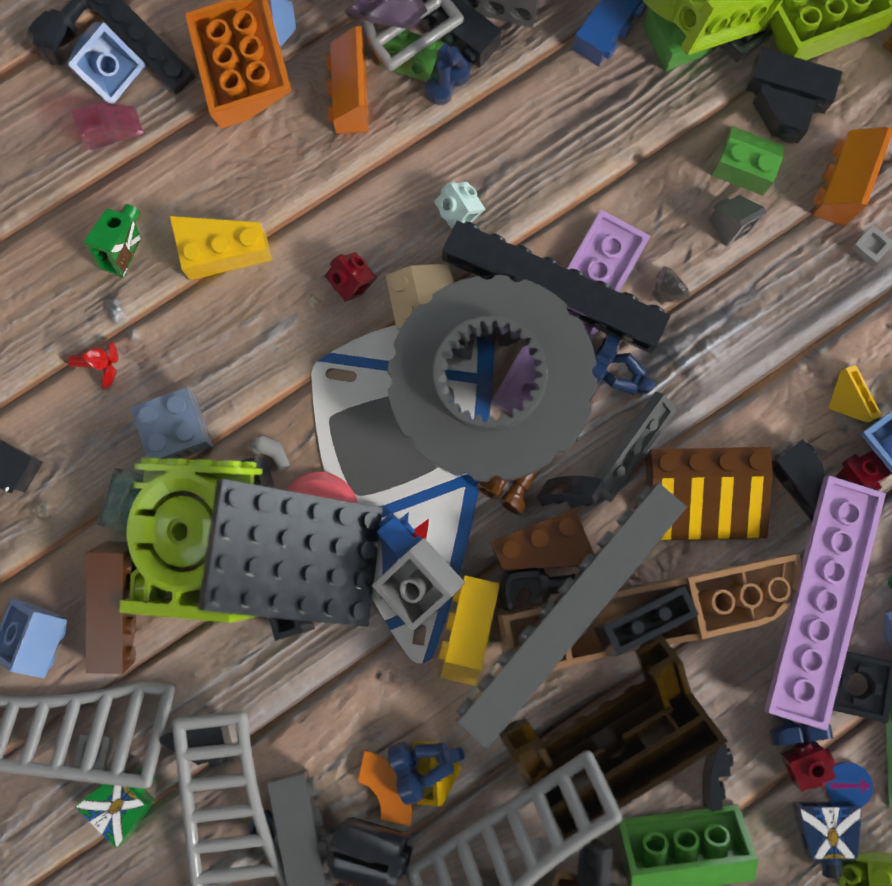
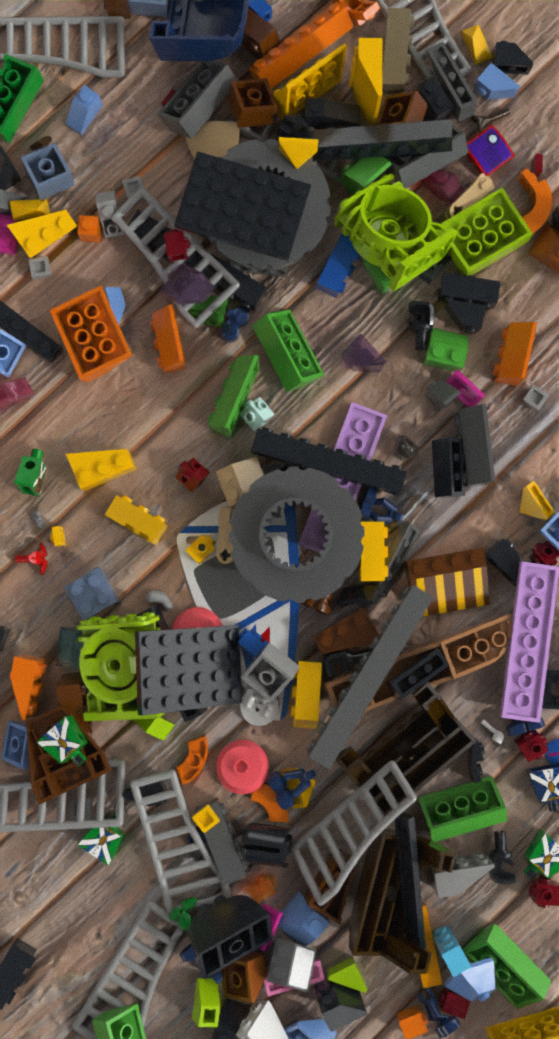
camera: 15 degrees left, 5 degrees up
(47, 544) = (26, 683): none -> orange slope
(74, 660) = (48, 775): none -> reddish brown wedge
(81, 637) = (65, 741): none -> torso
(137, 336) = (57, 536): none -> yellow plate
(230, 640) = (156, 727): none -> lime slope
(258, 328) = (136, 519): none -> yellow wedge
(281, 704) = (194, 761): none -> orange tile
(281, 797) = (206, 818): none -> yellow plate
(345, 396) = (200, 556): none -> yellow brick
(352, 727) = (242, 767): none -> coral piece
(380, 380) = (225, 528): none -> tan piece
(405, 645) = (266, 712): none -> white plate
(432, 171) = (234, 395): none -> bright green slope
(518, 123) = (287, 350): none -> bright green slope
(601, 435) = (372, 560): none -> yellow wedge
(627, 146) = (362, 356): none -> clear purple slope
(723, 101) = (425, 313): none -> black piece
(731, 323) = (448, 467): none -> black brick
(755, 742) = (497, 736): none -> white hand
(776, 223) = (469, 393): none -> dark pink plate
(776, 298) = (476, 445): none -> dark grey slope

